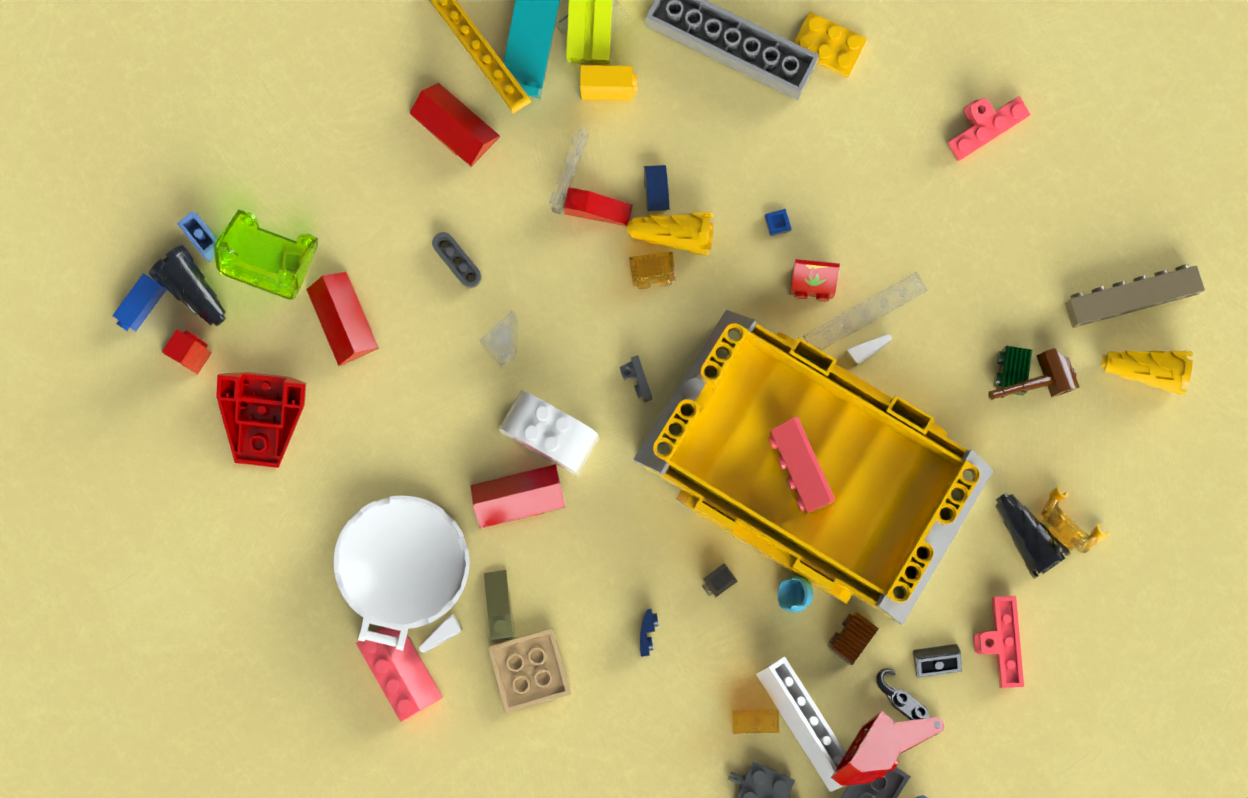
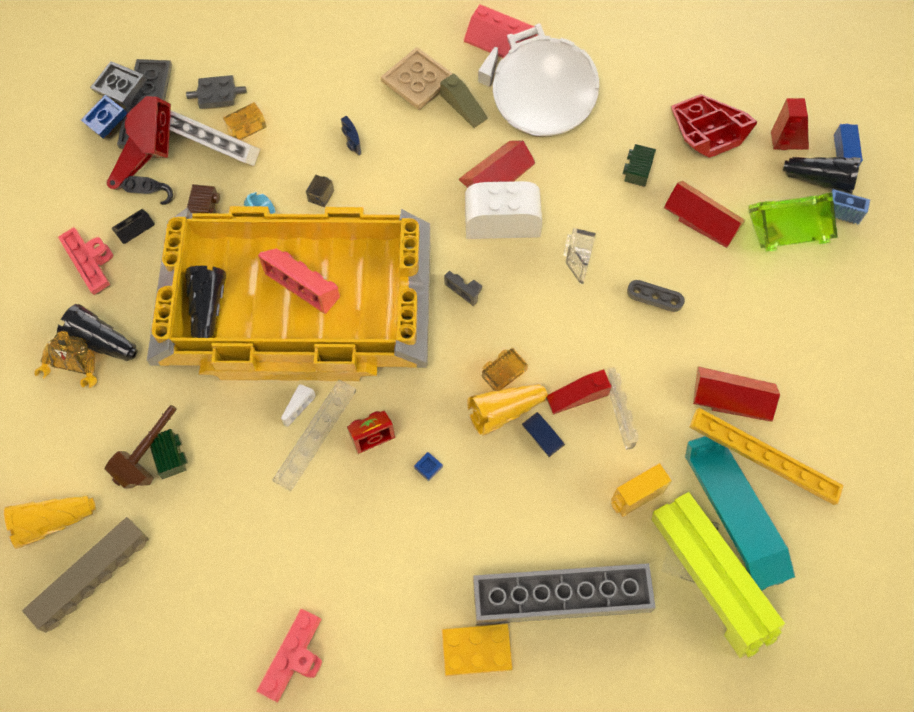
camera: 145 degrees right, 15 degrees down
(367, 411) = (639, 165): none -> dark green brick
(905, 505) = (204, 294): none -> black cone

